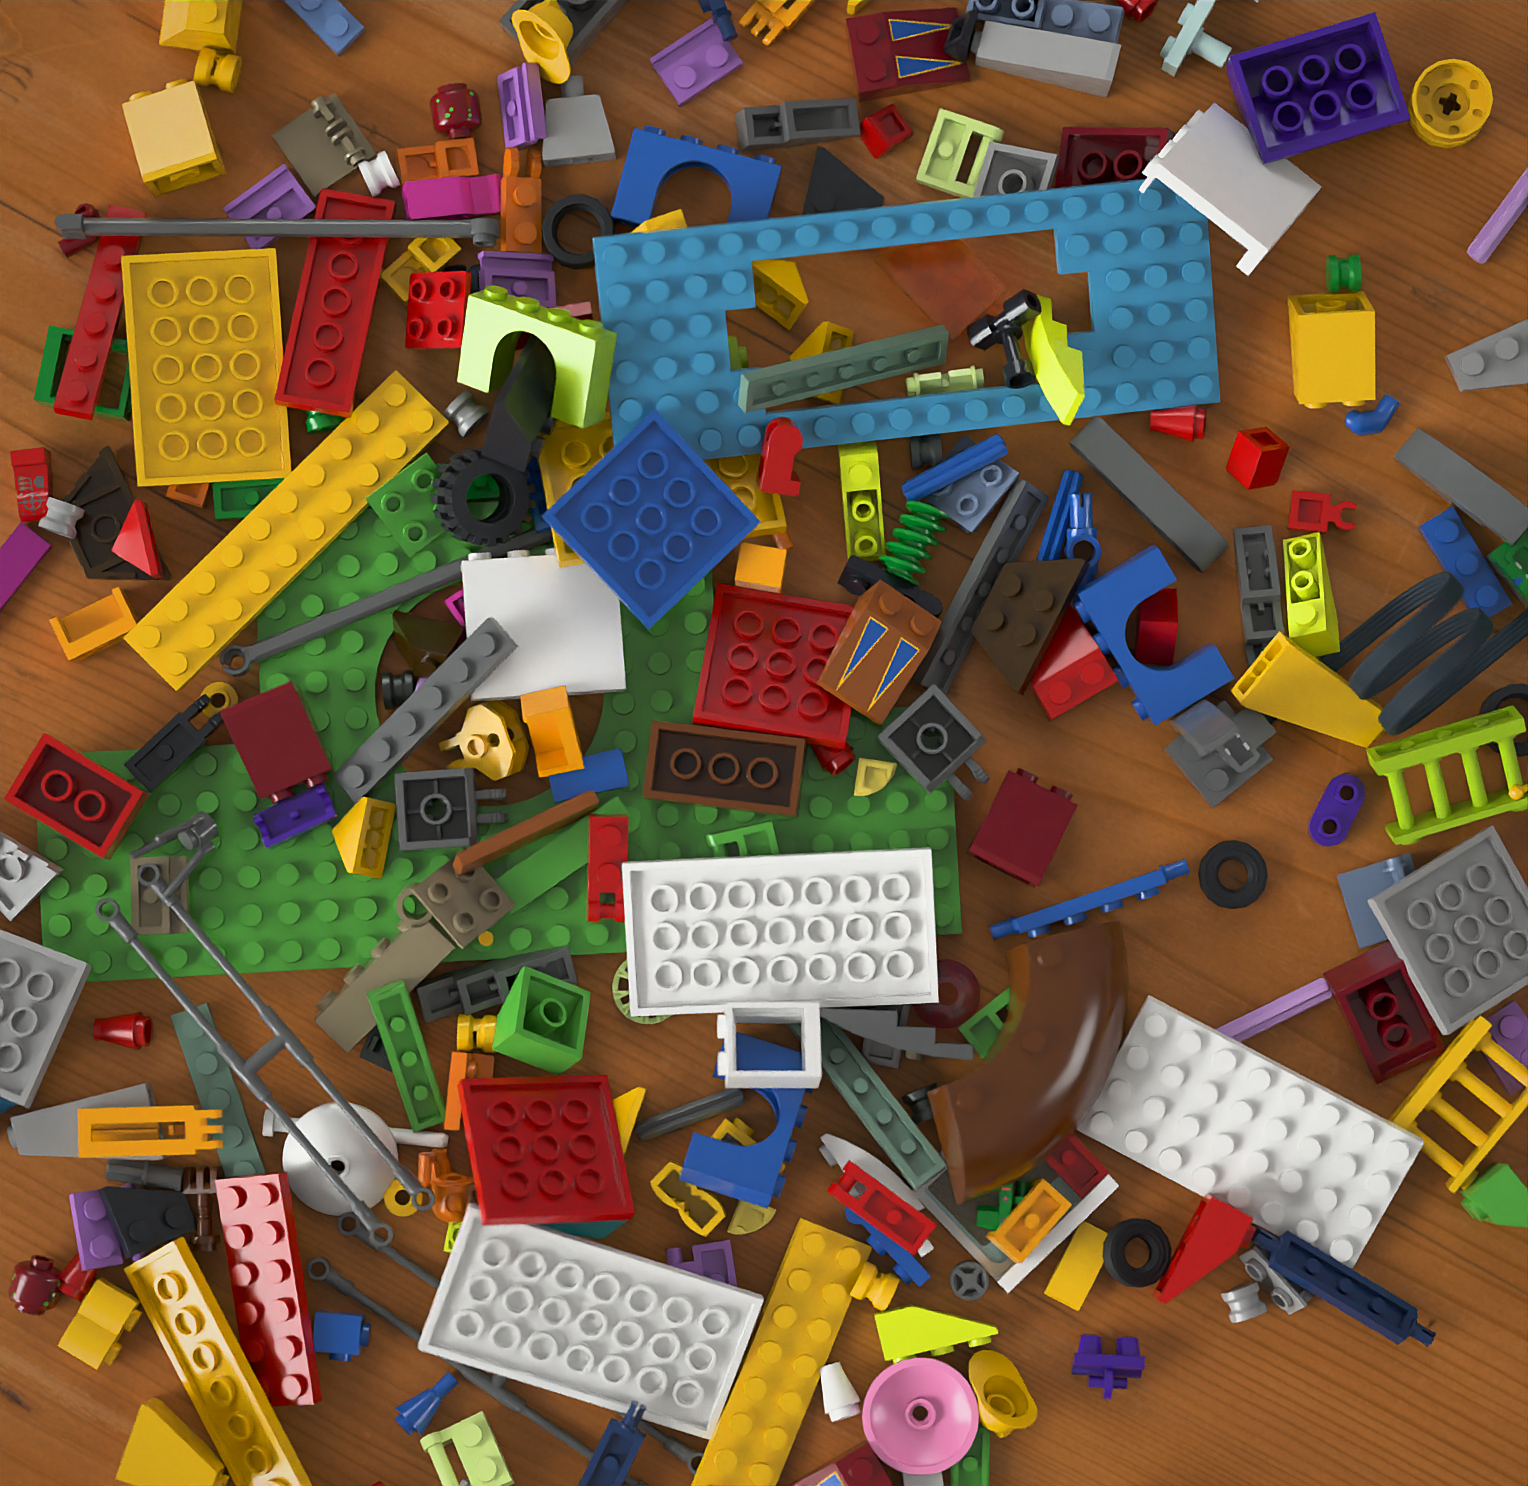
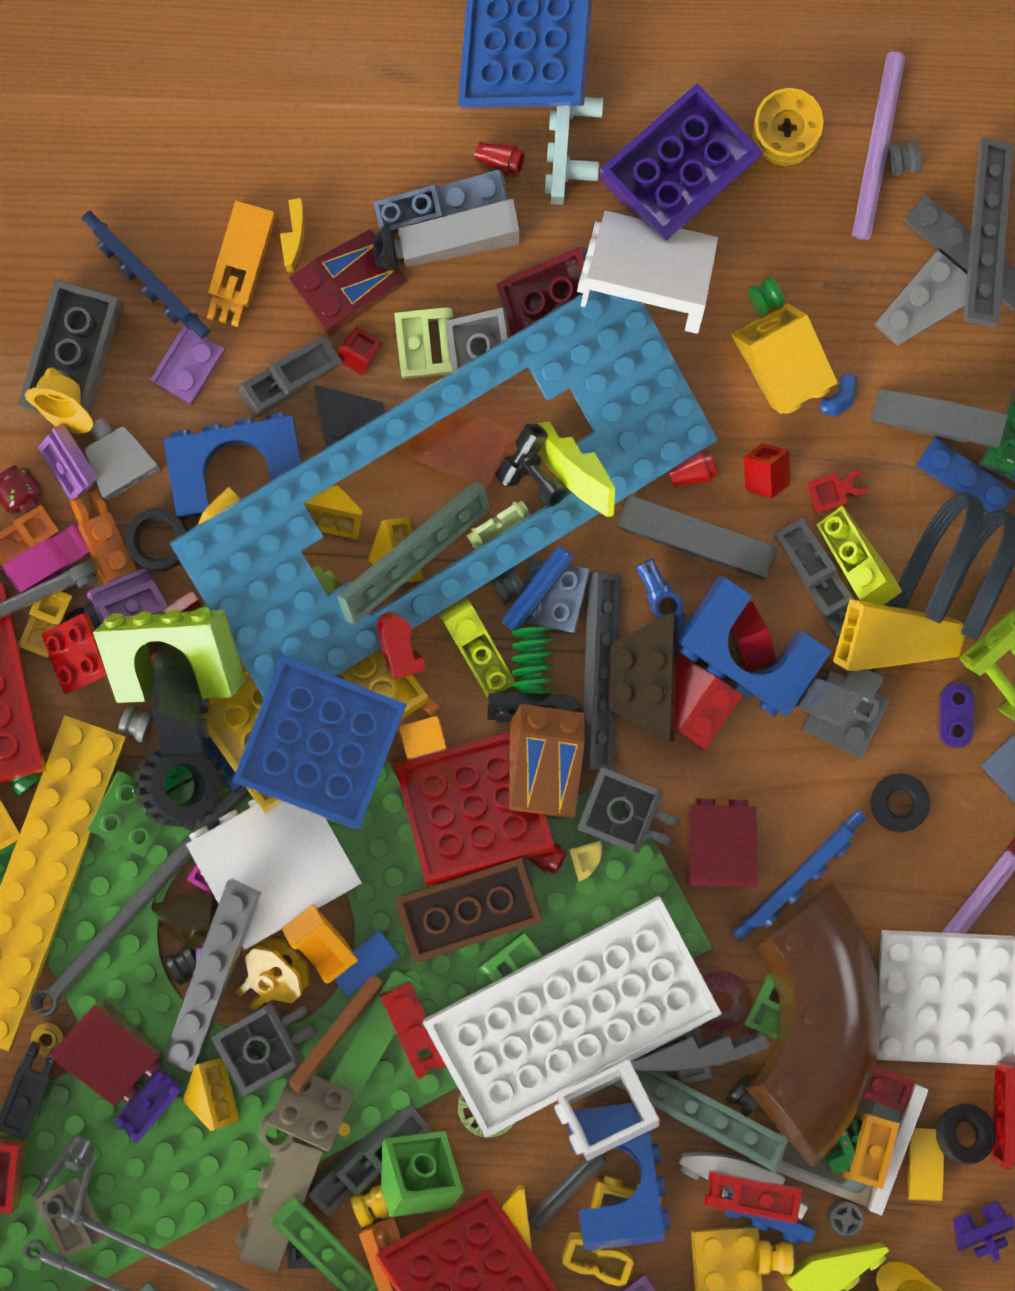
camera: 30 degrees left, 0 degrees up
(749, 1218) = (651, 1252): light yellow tile -> none
(1059, 517) = (636, 588): blue axle -> none

